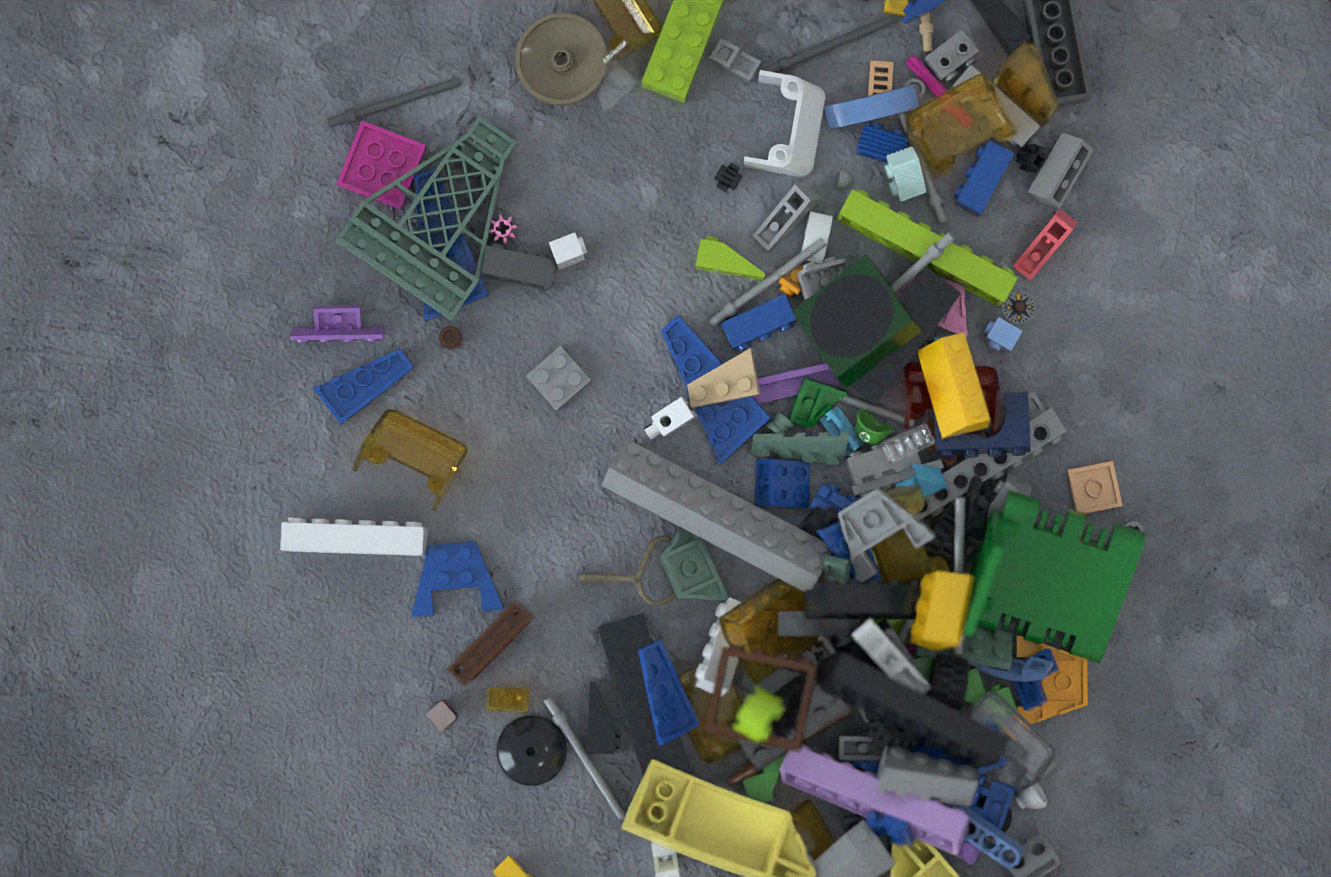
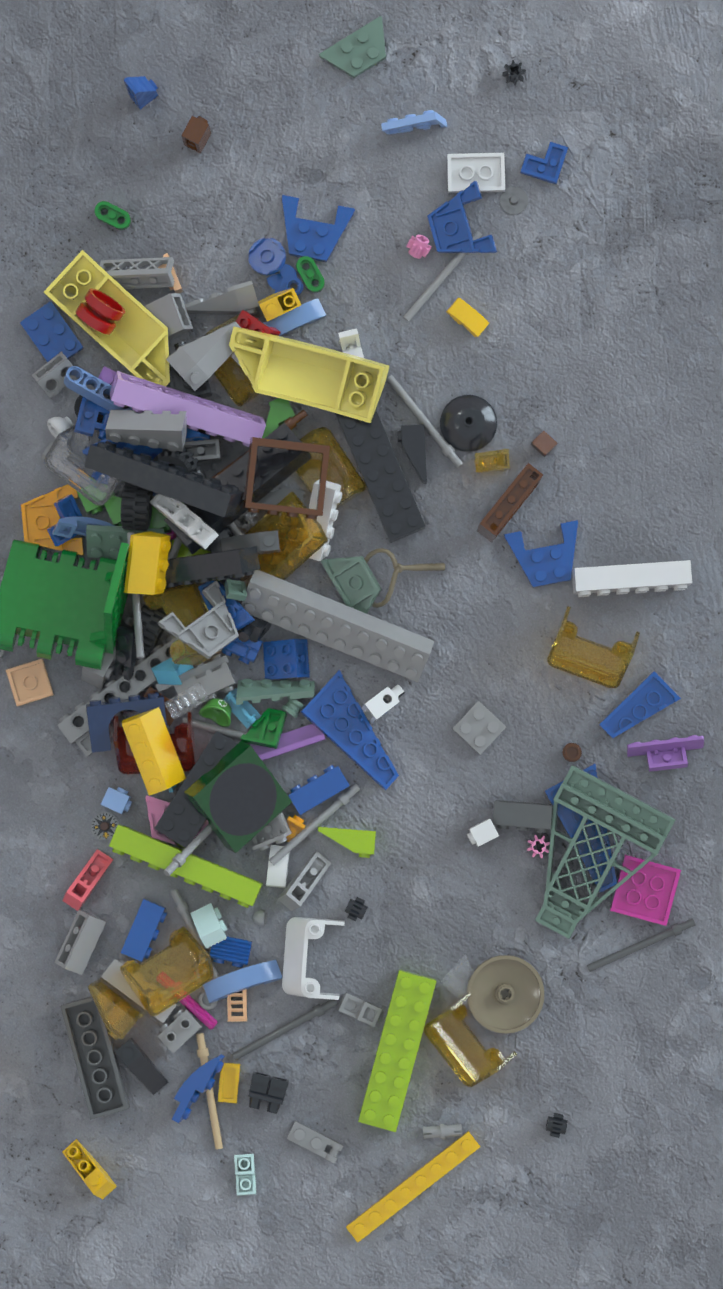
camera: 175 degrees right, 0 degrees up
(666, 696) = (363, 474): blue wing -> none
(727, 382) = (339, 736): tan wing -> none
(759, 714) = (287, 462): lime brick -> none
(895, 828) = (166, 385): blue plate -> none
(1030, 157) = (106, 951): black gear -> none

